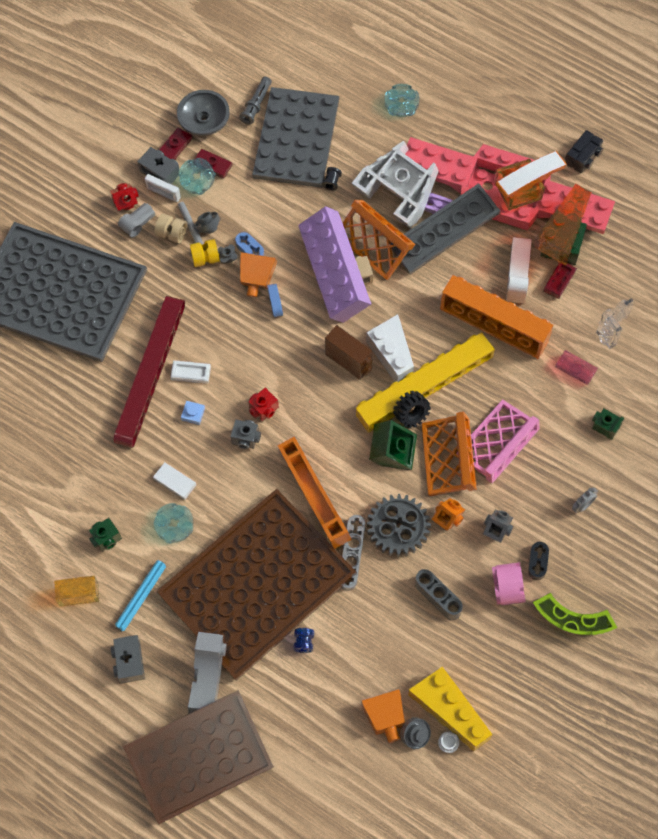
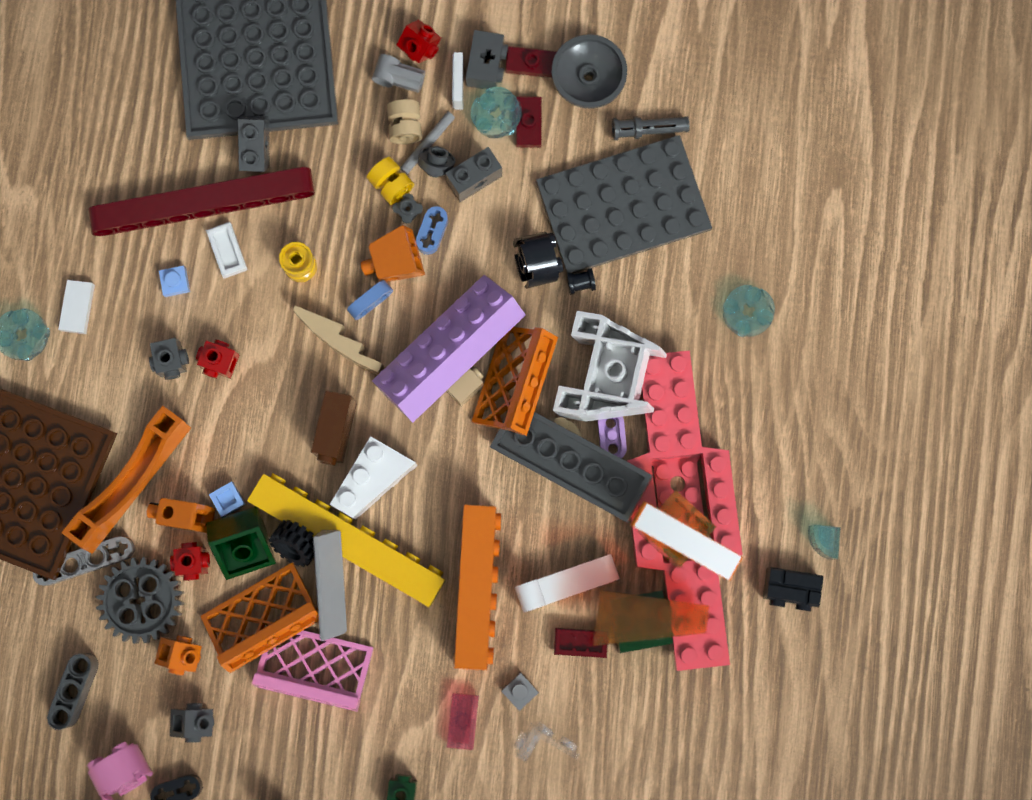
camera: 60 degrees right, 15 degrees up
(132, 317) = (253, 143): none -> dark grey brick
(226, 328) = (298, 262): none -> yellow wheel
(229, 205) = (474, 174): none -> dark grey brick
(285, 332) = (332, 335): none -> tan slope
(305, 192) = (537, 259): none -> black brick
(358, 464) = (181, 514): none -> orange torso
(359, 442) = (227, 499): none -> light blue plate
(389, 480) = (199, 563): none -> red brick
(448, 399) = (330, 584): none -> light grey slope
(564, 122) = (825, 540): none -> clear light blue brick
(573, 328) = (520, 691): none -> light grey plate

